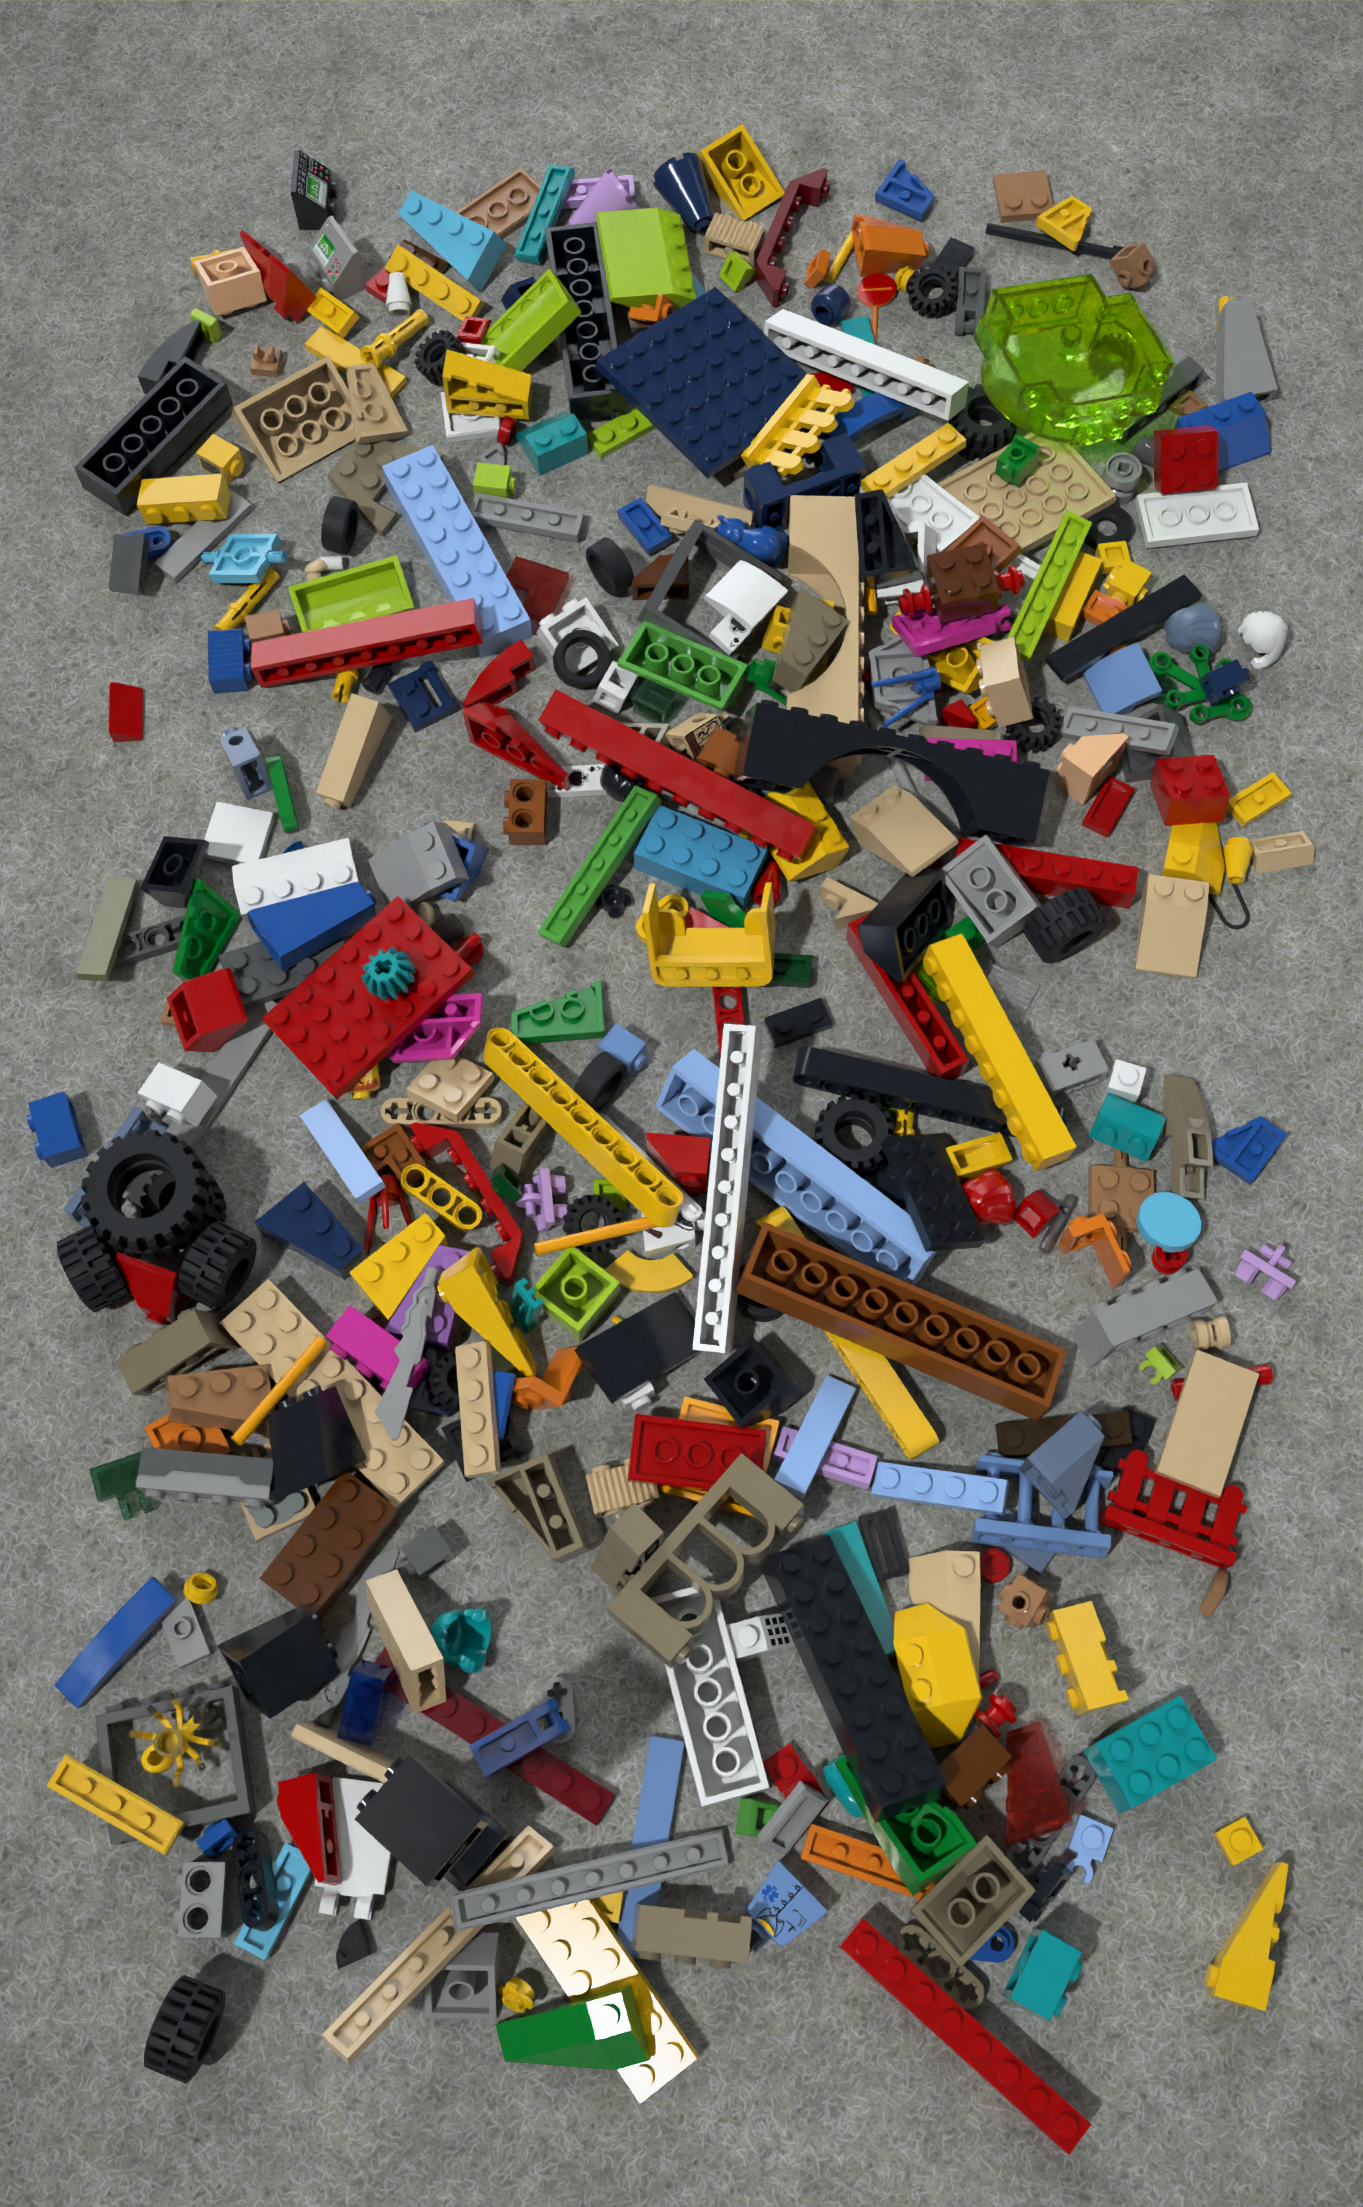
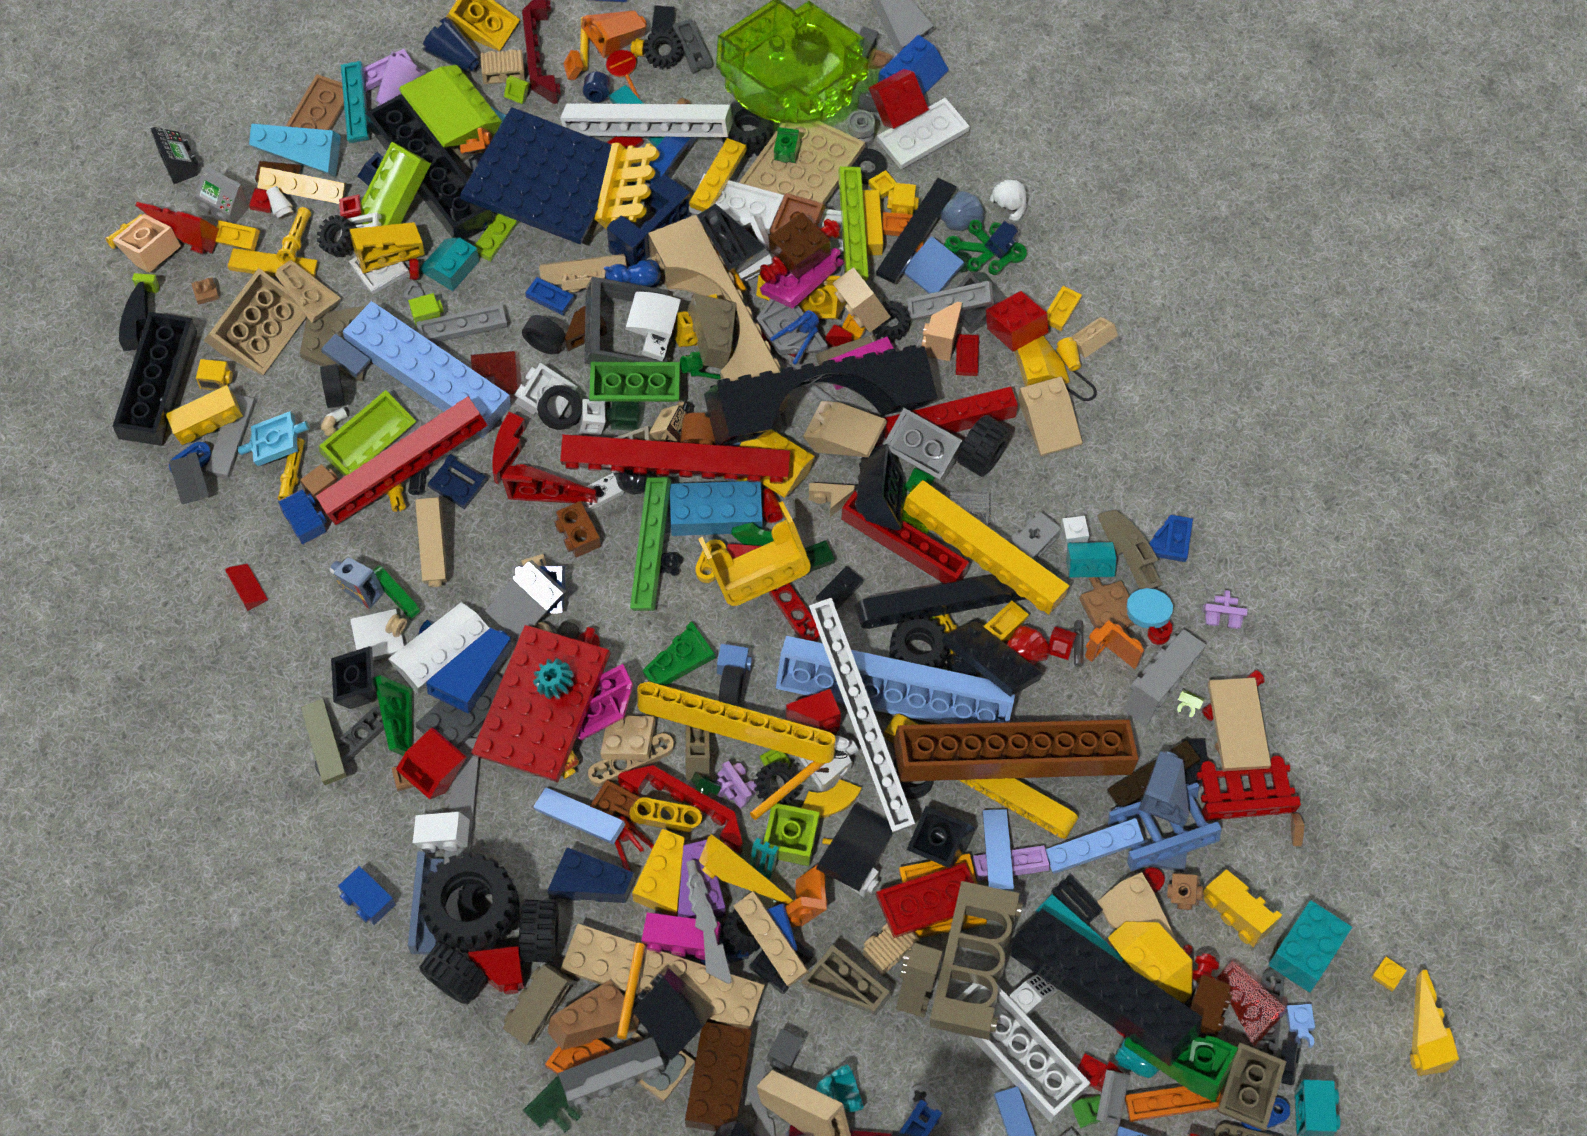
camera: 30 degrees left, 5 degrees down
(258, 831) = (396, 625): none -> tan bush
(375, 497) = (345, 355): none -> sand blue tile
(1210, 1333) = (1210, 668): tan wheel -> none

